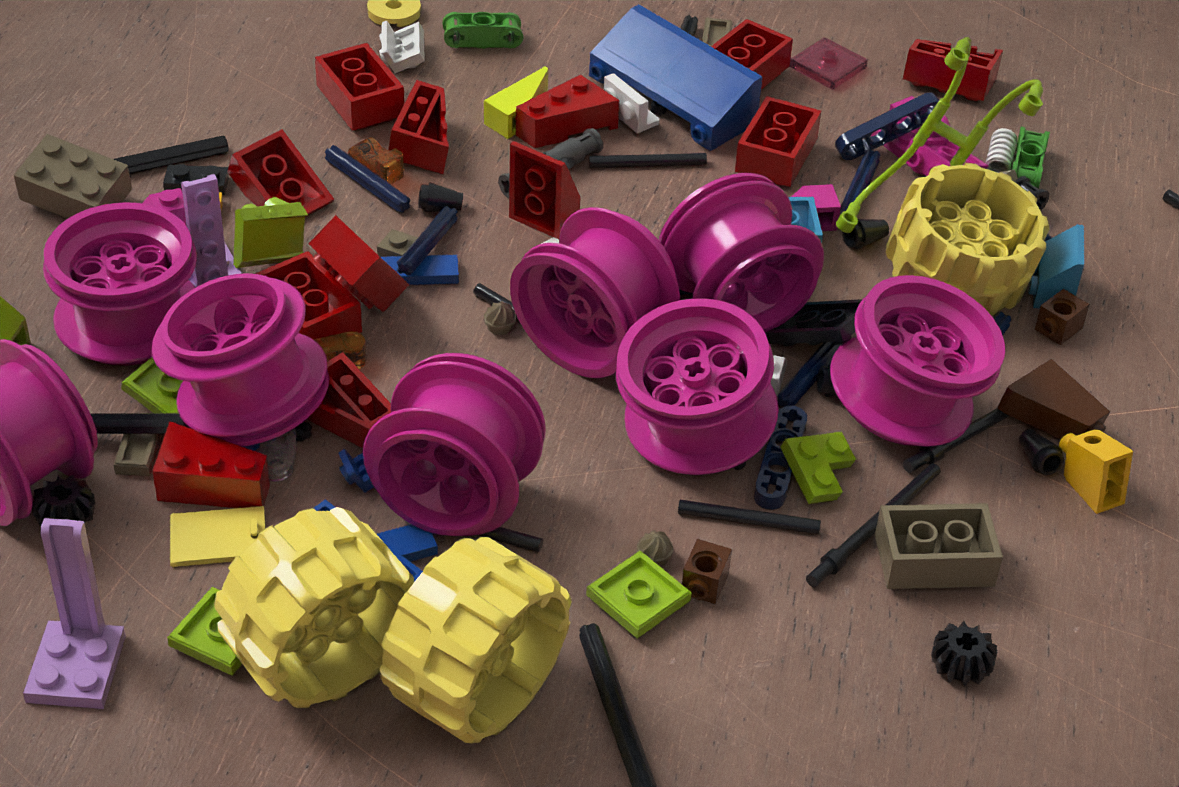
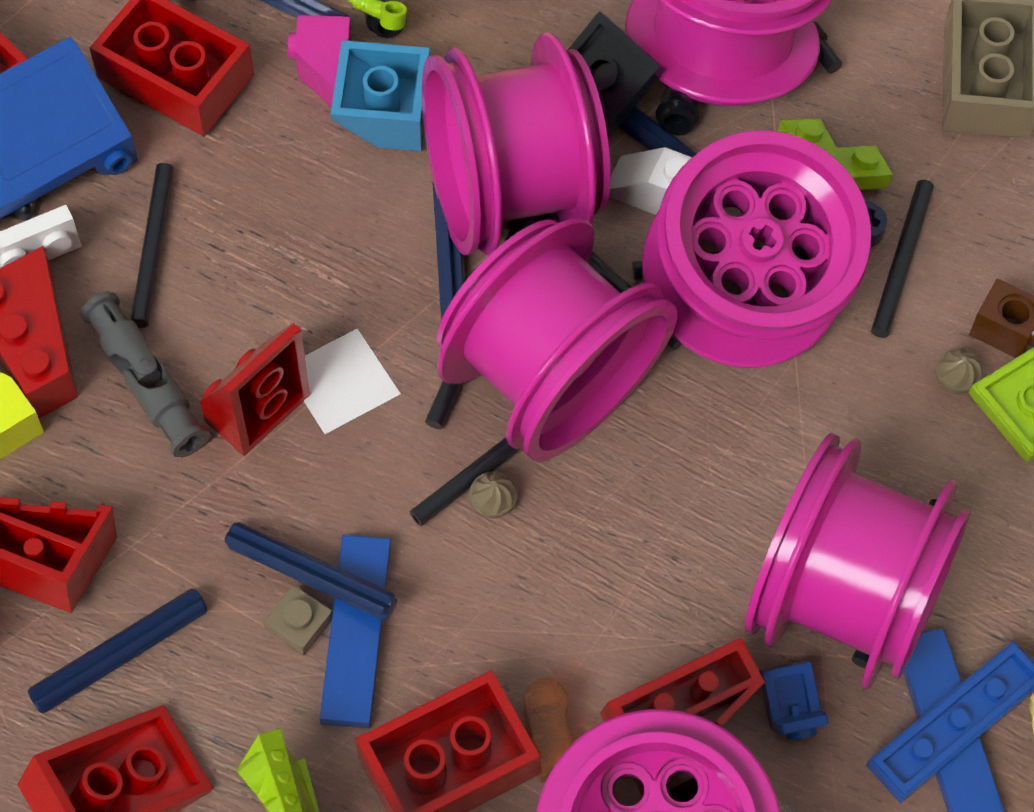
camera: 80 degrees left, 20 degrees up
(357, 265) = (426, 659): red brick -> none
(379, 159) = (82, 627): clear orange leg -> none
(436, 197) = (200, 546): black cone -> none
(835, 559) = (984, 180): black bar -> none

